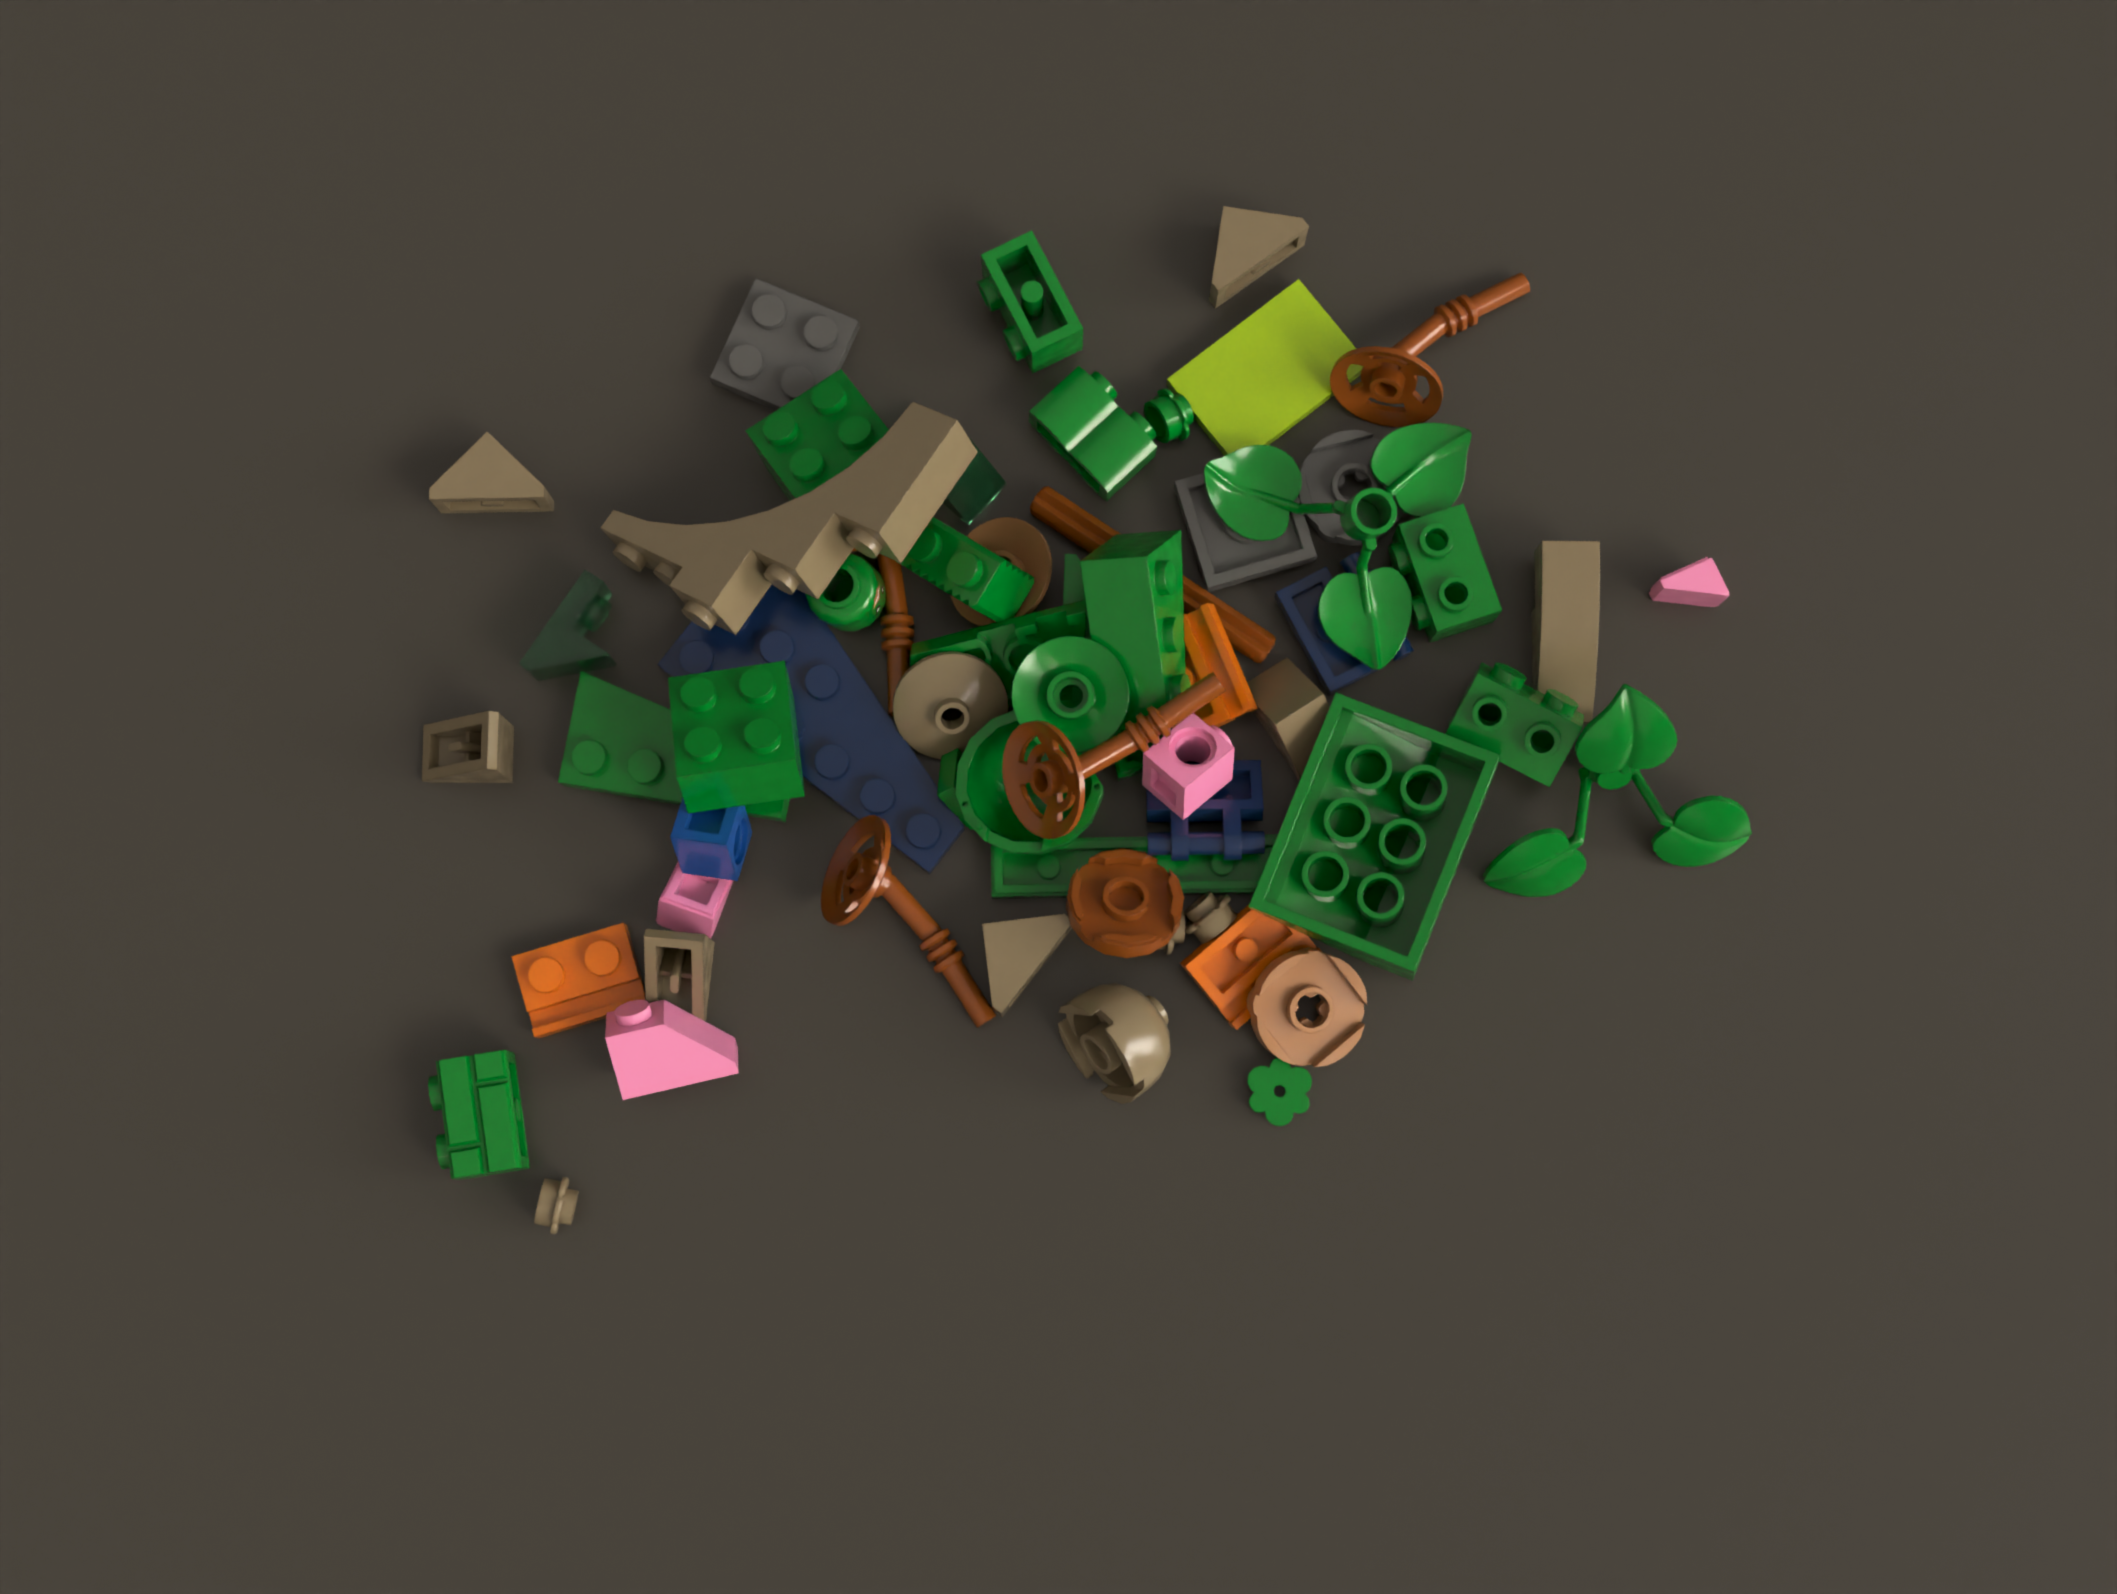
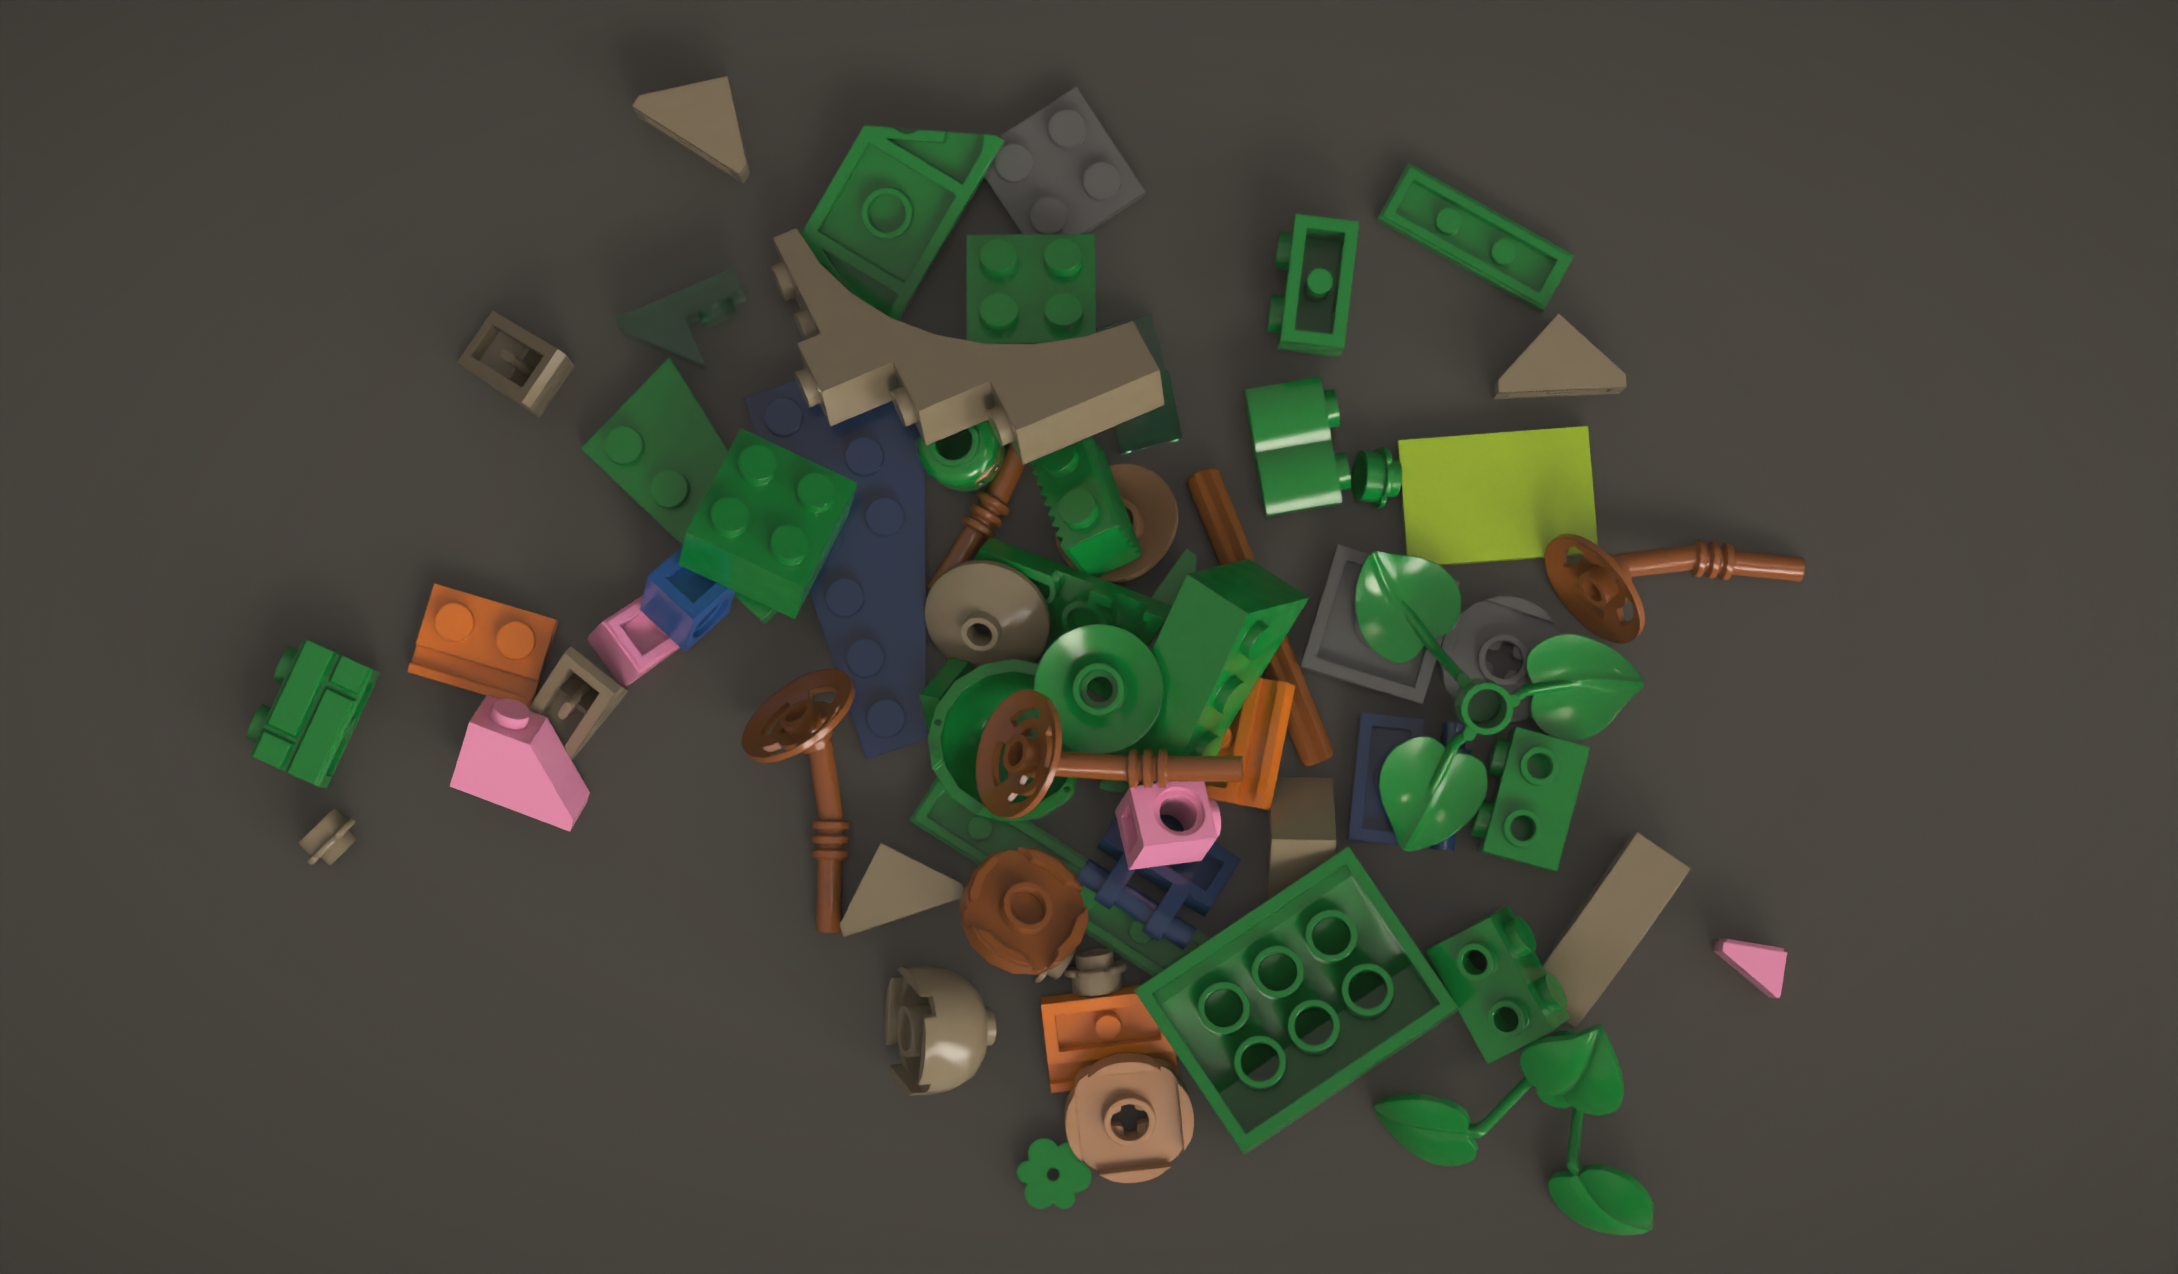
camera: 25 degrees right, 5 degrees up
(679, 445) = (896, 209): none -> green wing
(1123, 200) = (1475, 237): none -> green tile

